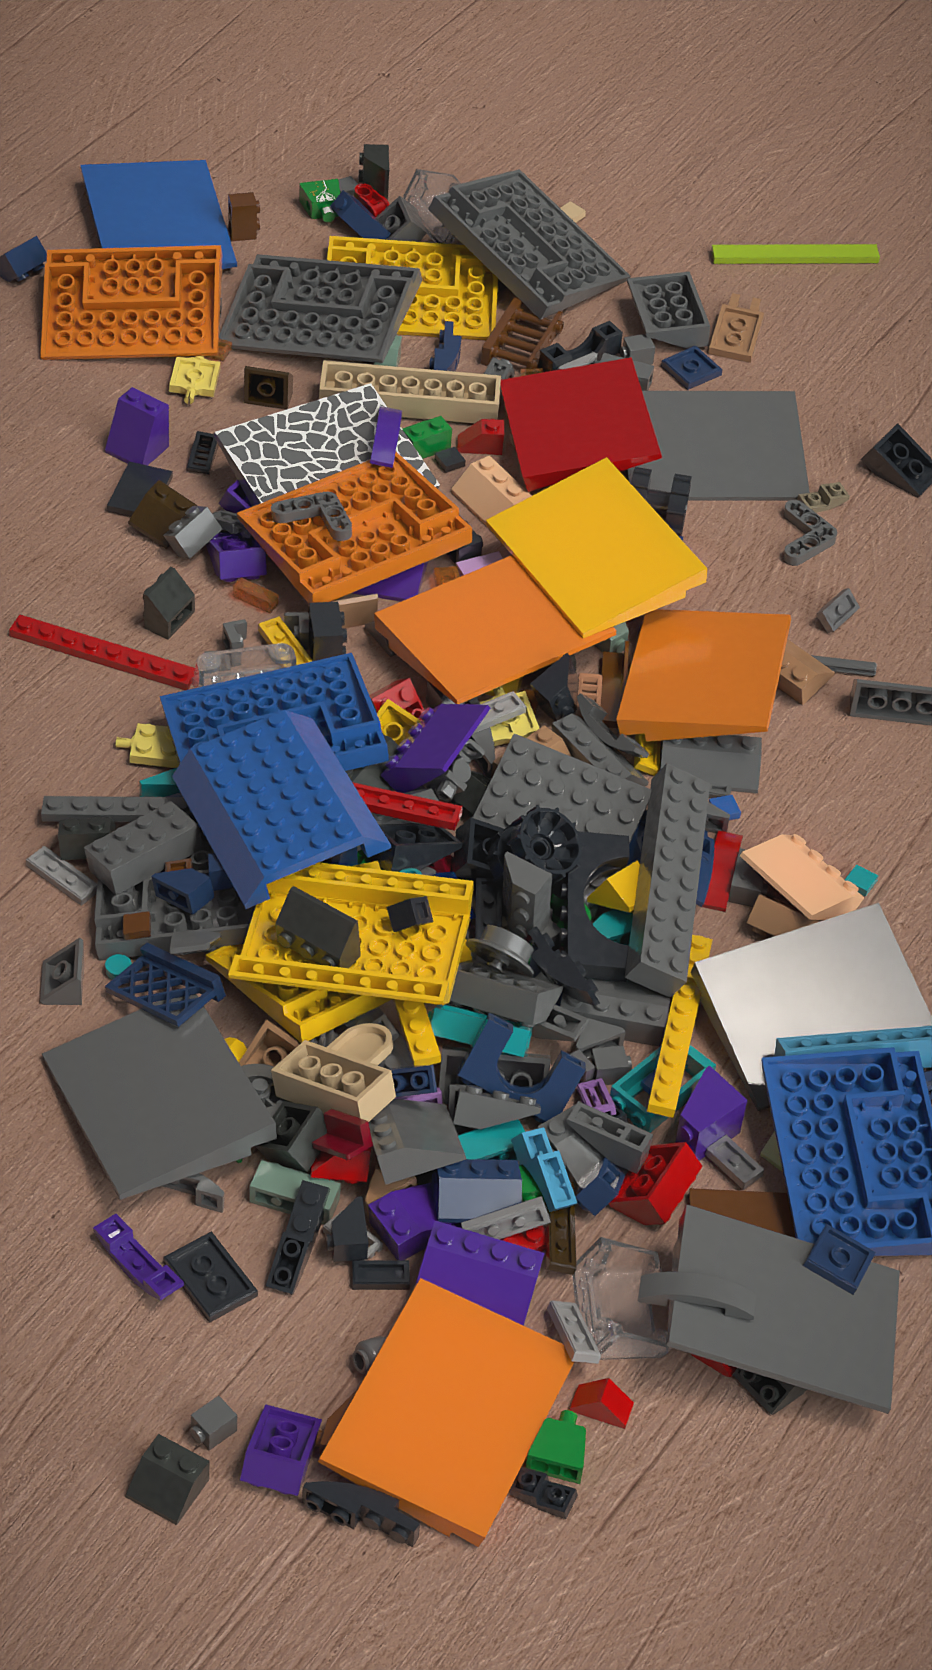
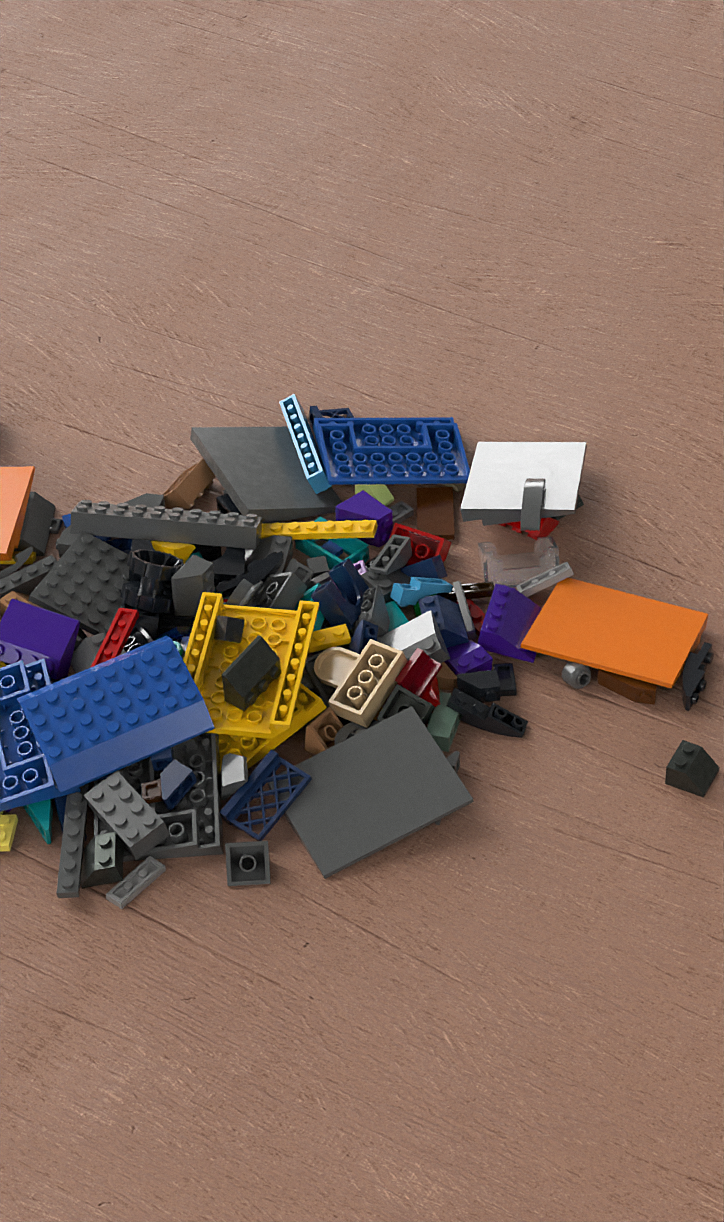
camera: 85 degrees left, 5 degrees down
(116, 964) = (233, 835): teal tile -> none
(135, 1260) = (517, 801): dark purple slope -> none
(137, 925) = (207, 814): reddish brown tile -> none
(211, 1276) = (518, 765): black tile -> none
(213, 1423) = (643, 750): dark grey brick -> none
(280, 1450) = (657, 715): dark purple slope -> none
(539, 1492) = (664, 592): black slope -> none
(559, 1448) = (631, 582): green torso -> none
(603, 1402) = (591, 571): red slope -> none
(803, 877) = (153, 472): light nougat slope -> none
(839, 1259) = (481, 457): dark blue tile -> none
(862, 879) = (142, 459): teal tile -> none

